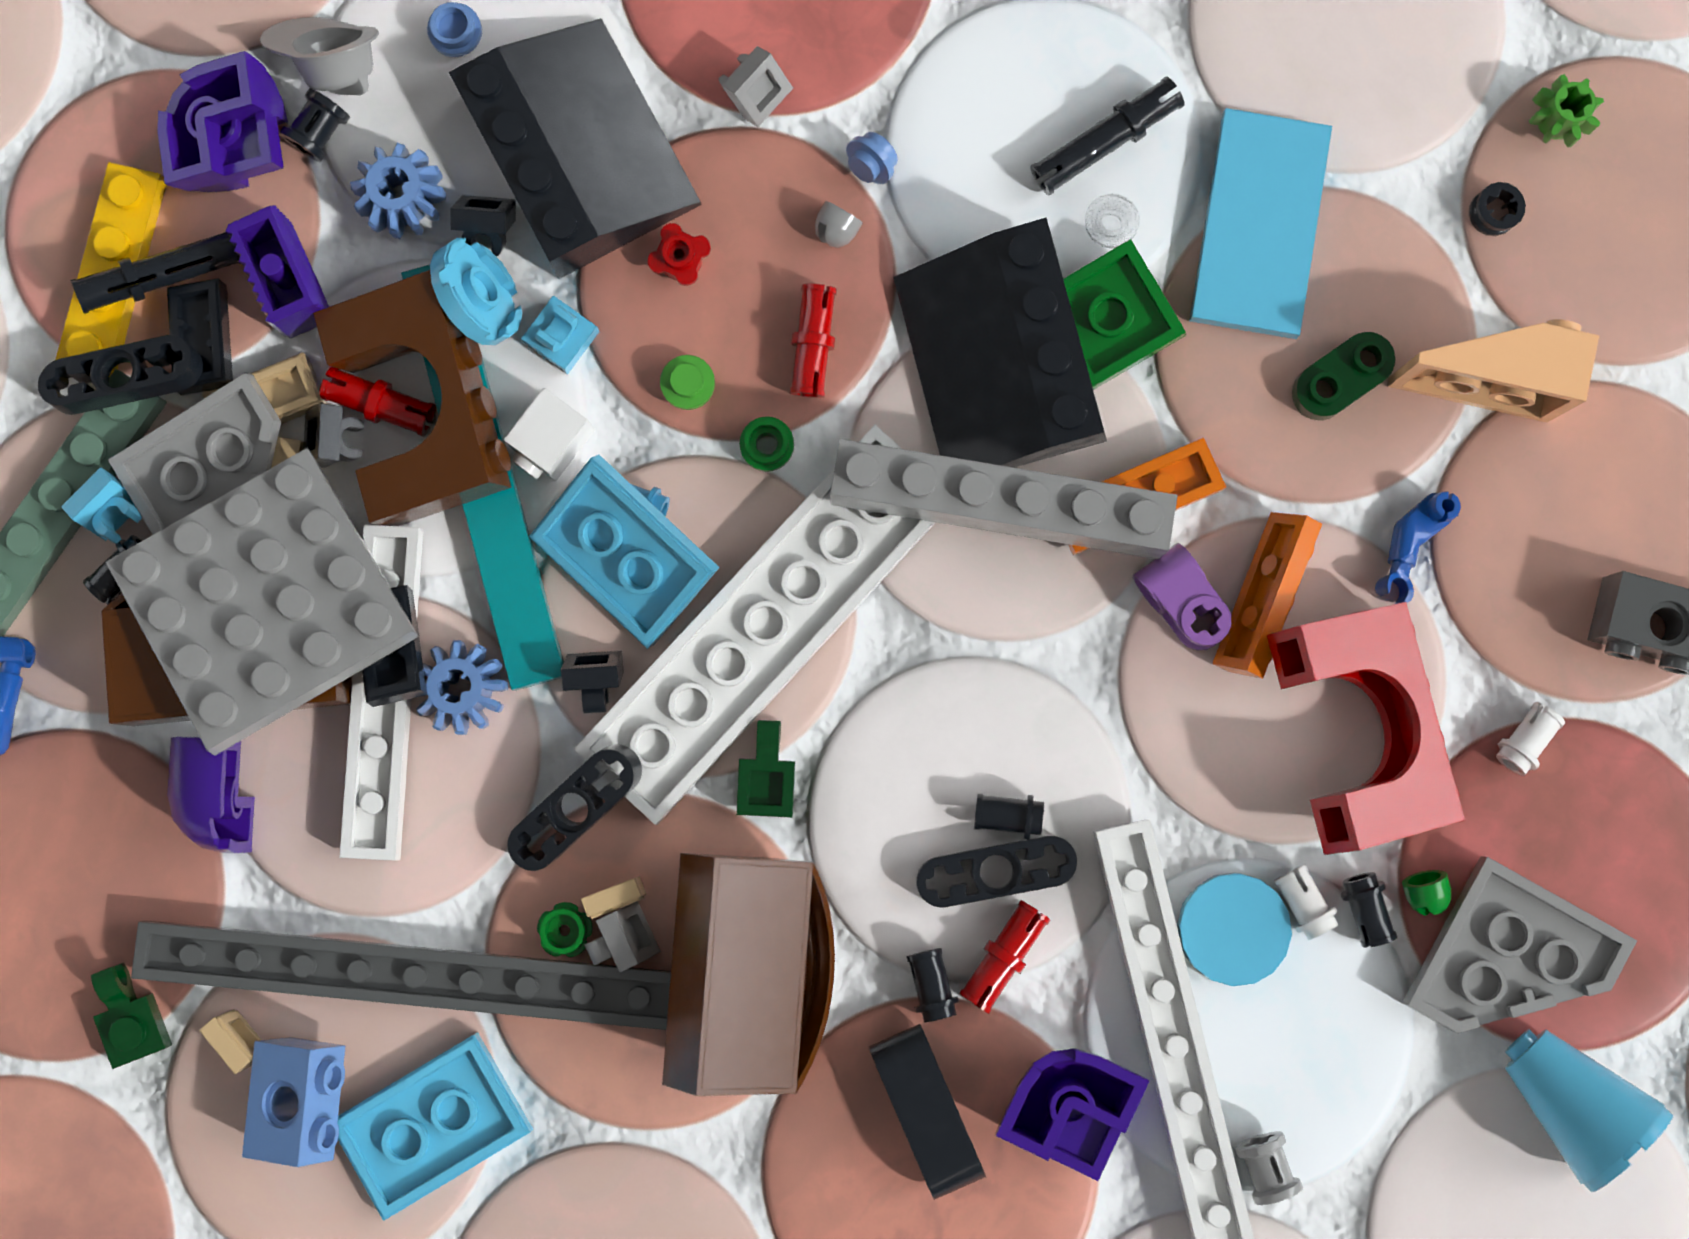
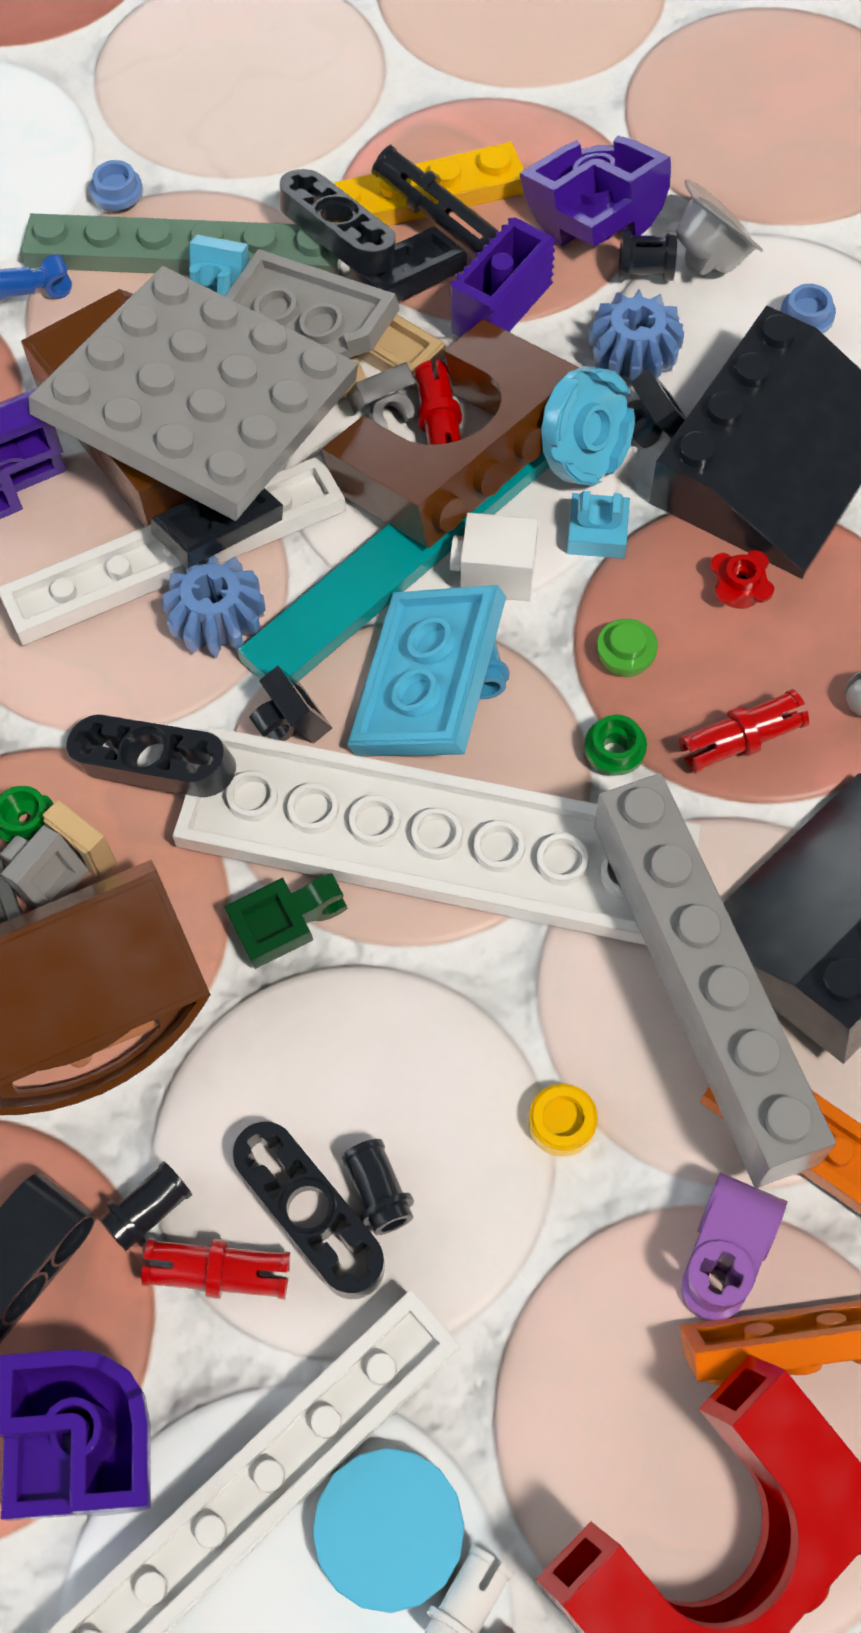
camera: 60 degrees right, 20 degrees down
(1031, 657) = (562, 1120): none -> yellow tile

